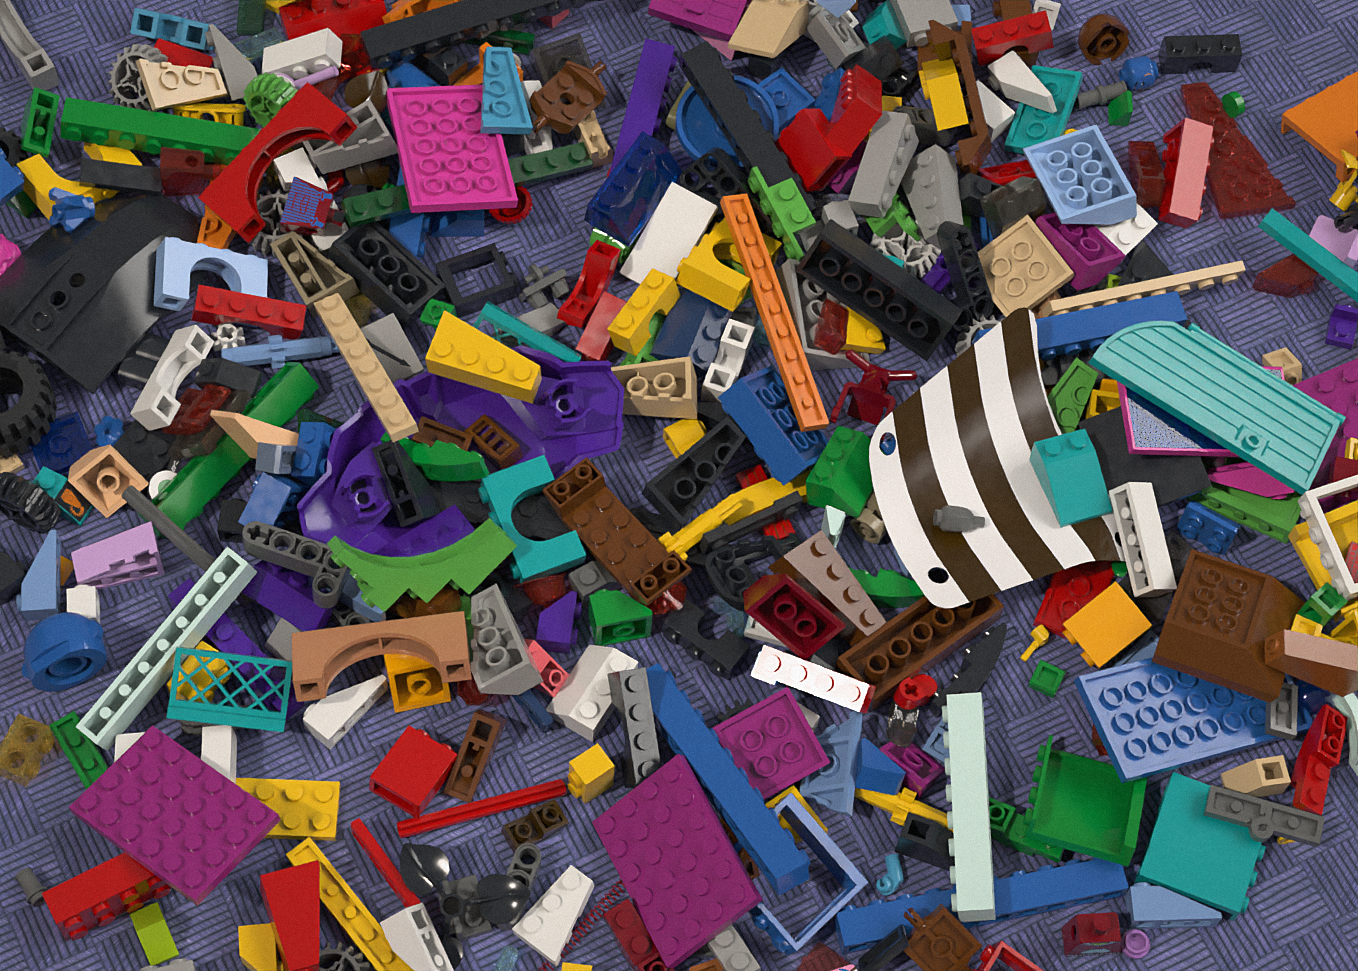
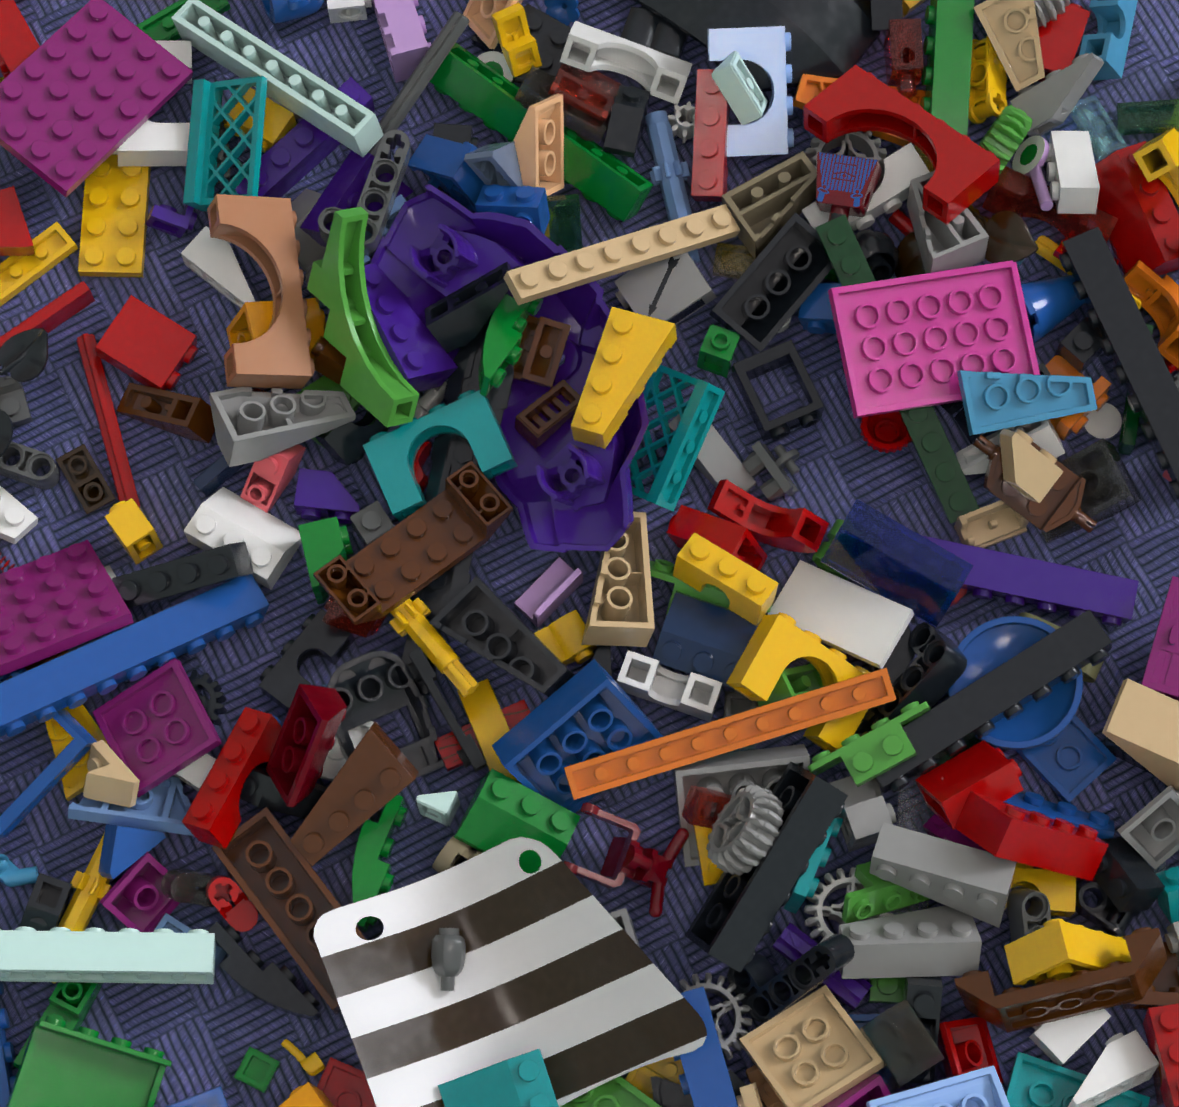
camera: 95 degrees right, 10 degrees up
(148, 459) = (515, 39): none -> yellow slope
(216, 279) = (740, 89): none -> light aqua slope
(291, 751) = (169, 221): none -> dark purple bracket
(545, 590) = (360, 477): clear red piece -> none
(560, 92) = (1025, 467): none -> tan slope
(644, 451) = (549, 591): none -> lavender panel
(817, 777) = (109, 777): none -> tan slope
(866, 290) = (745, 830): none -> light grey gear

